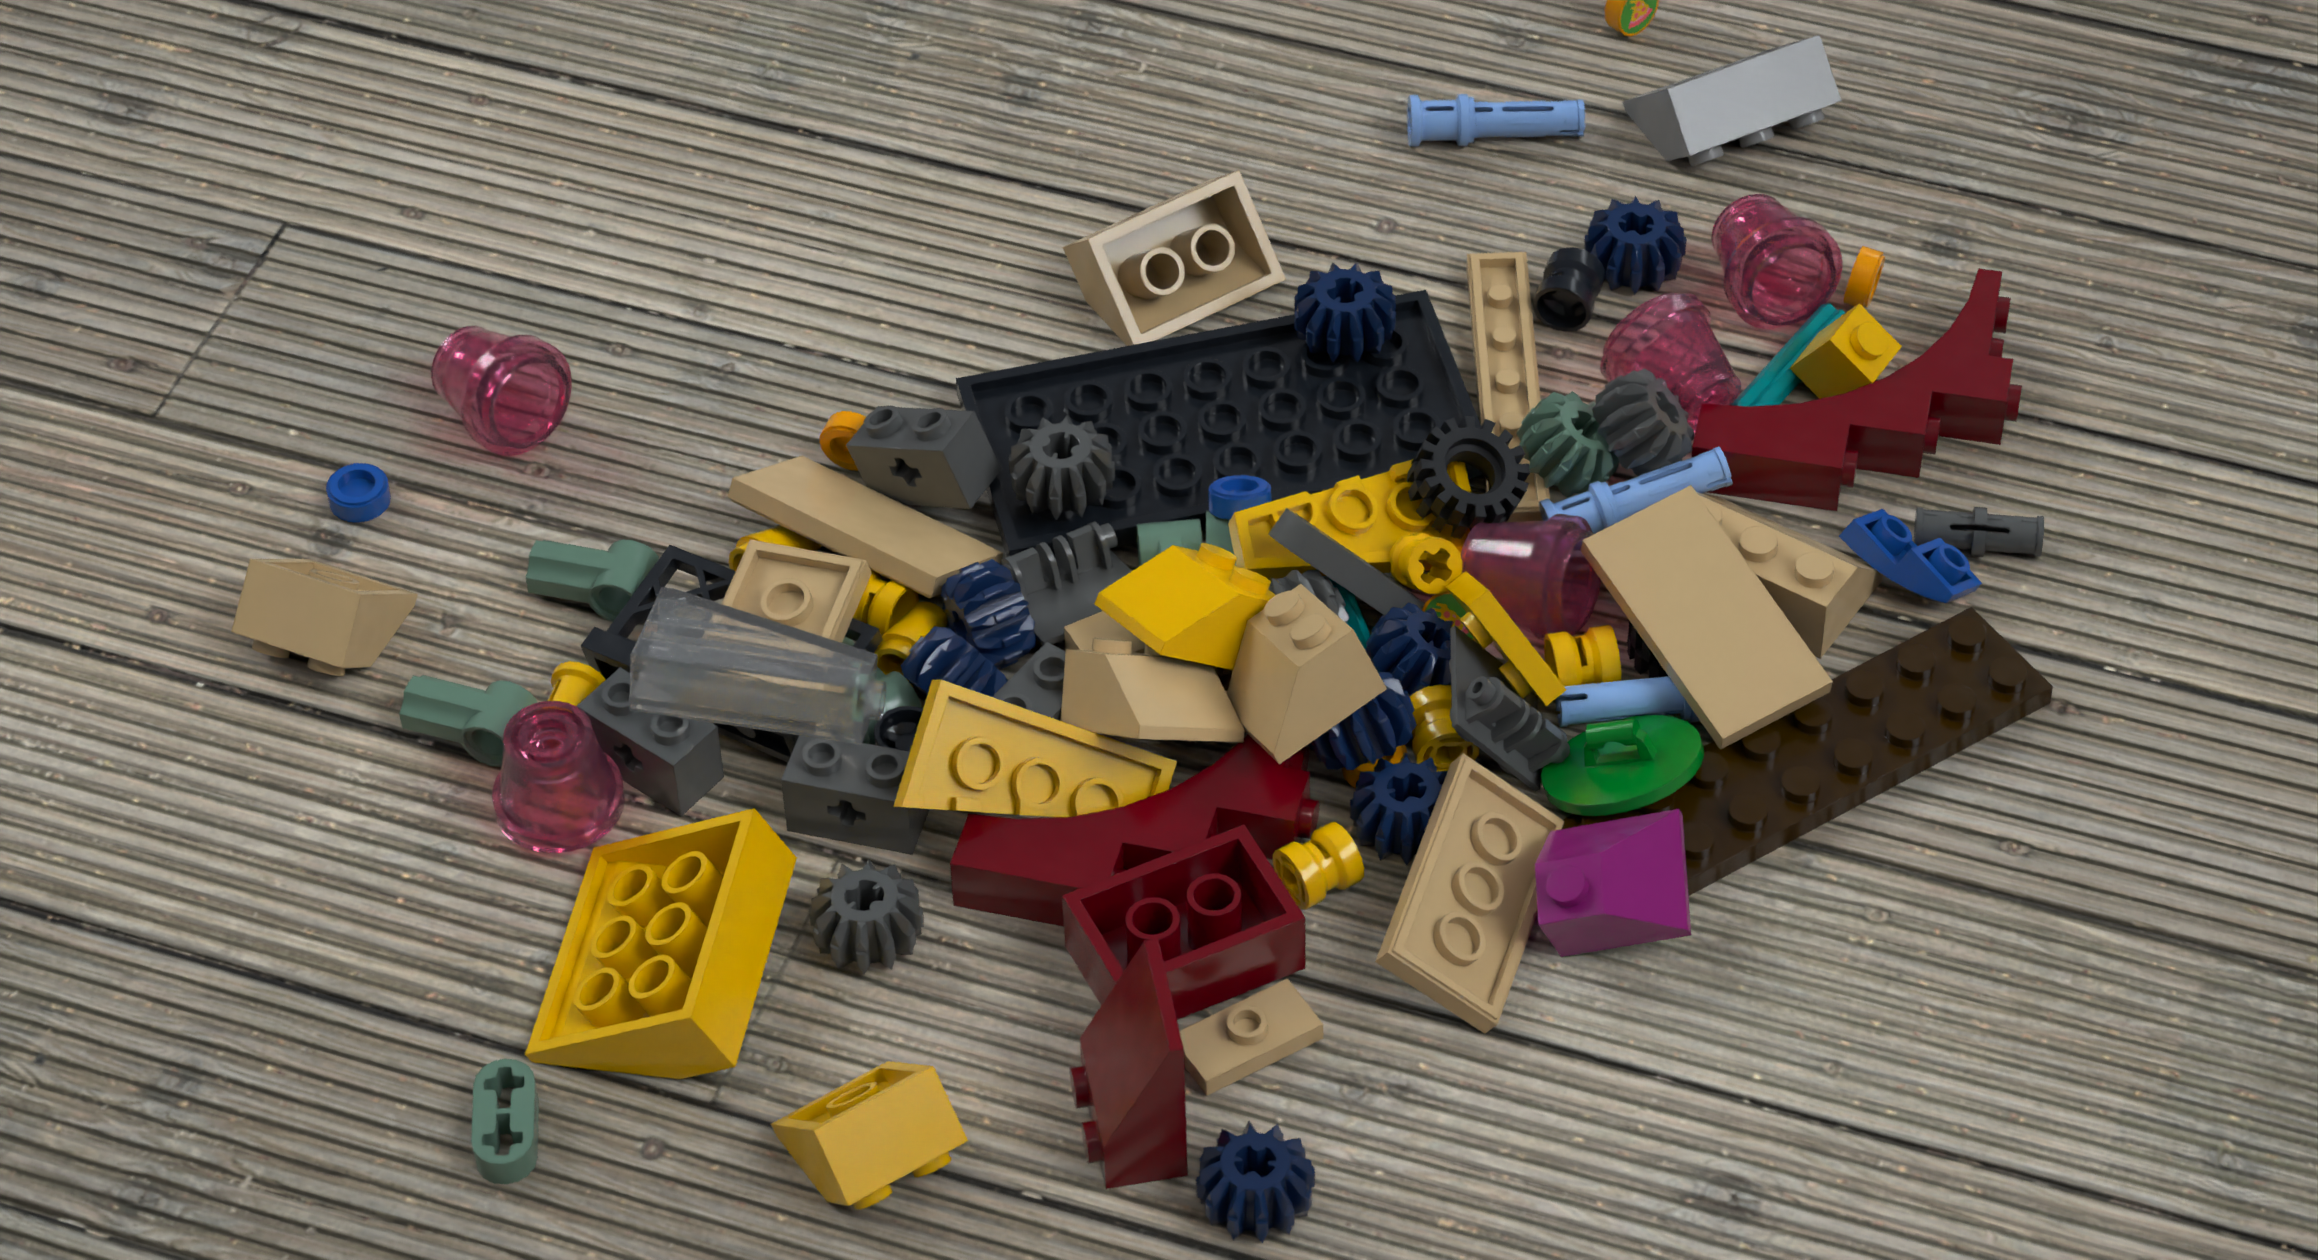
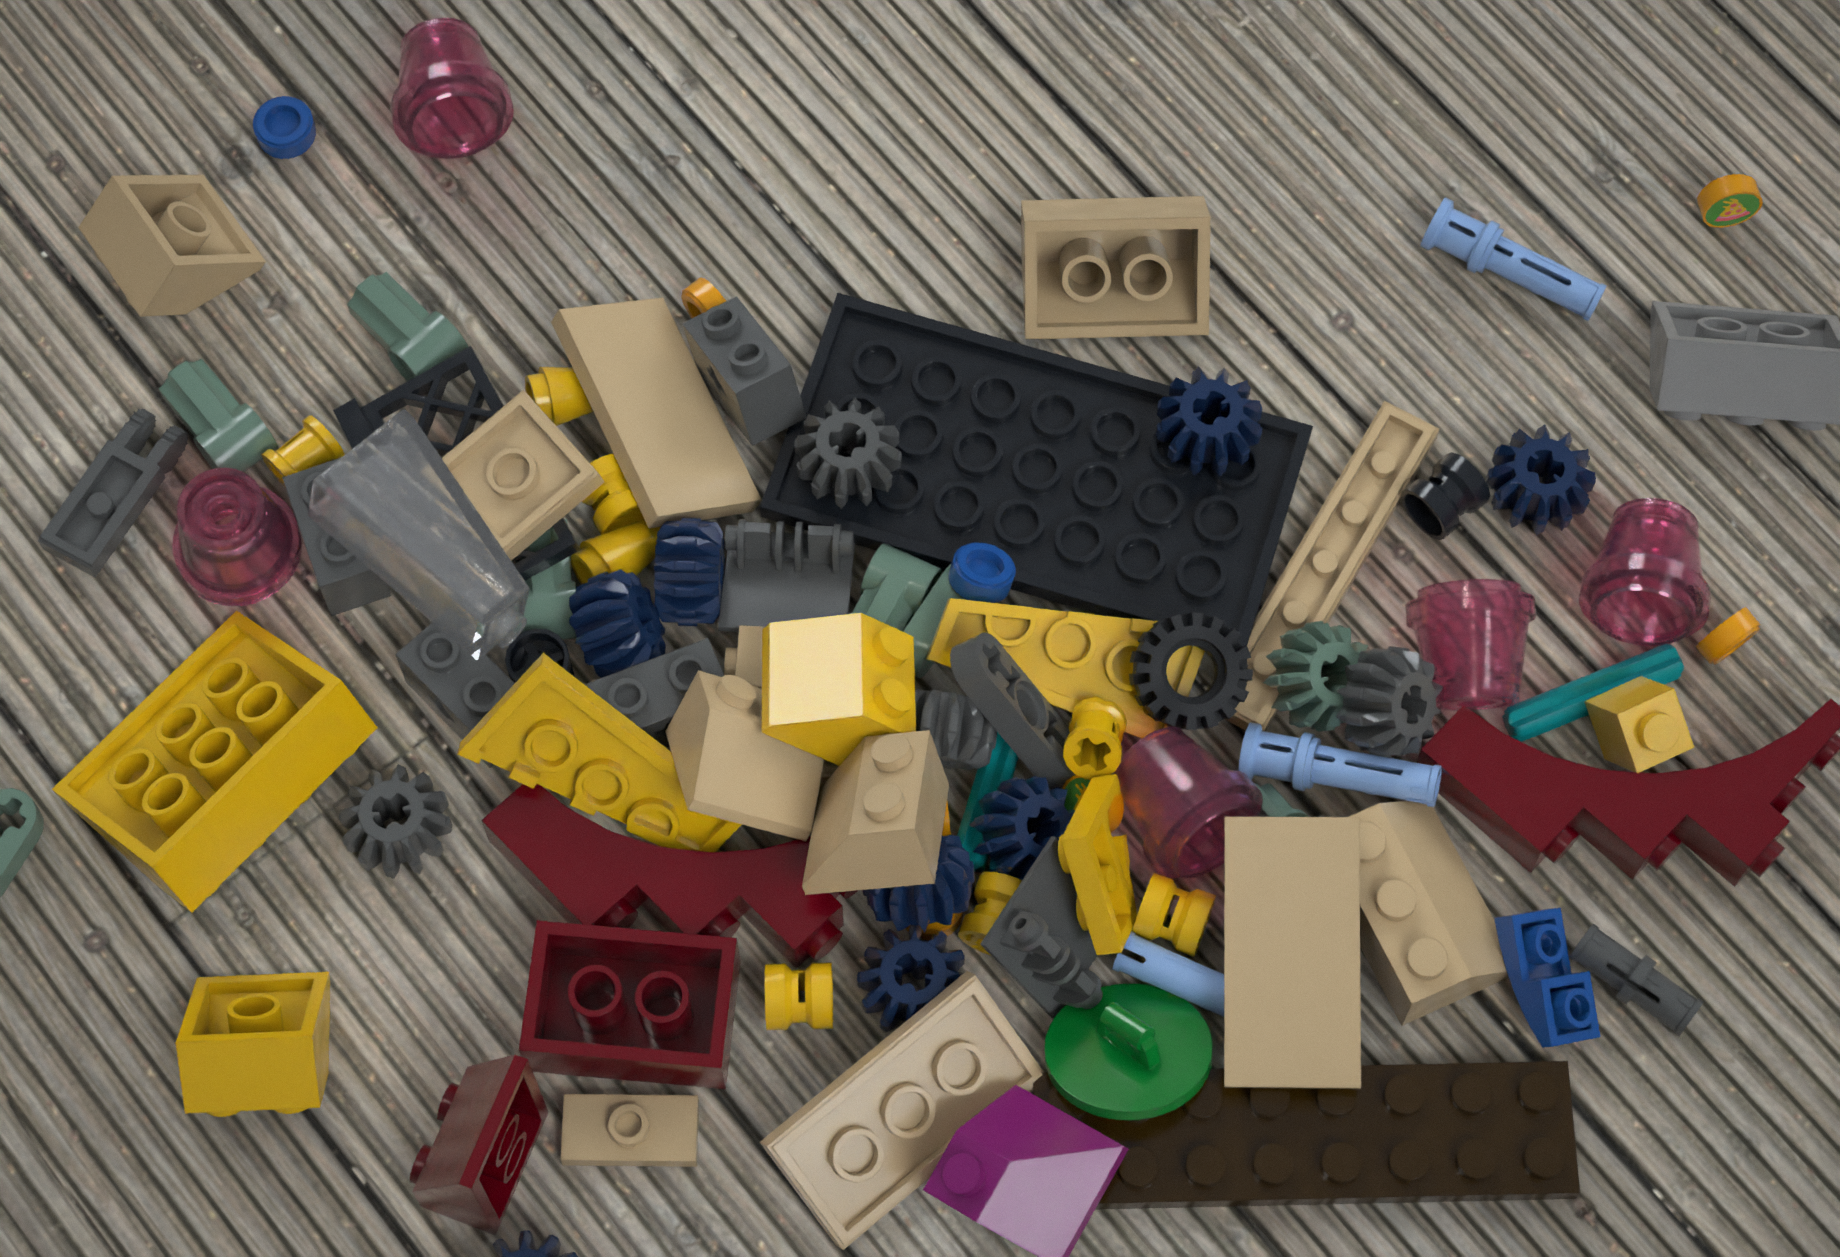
camera: 30 degrees right, 20 degrees up
(412, 817) = (112, 494): none -> dark grey hinge

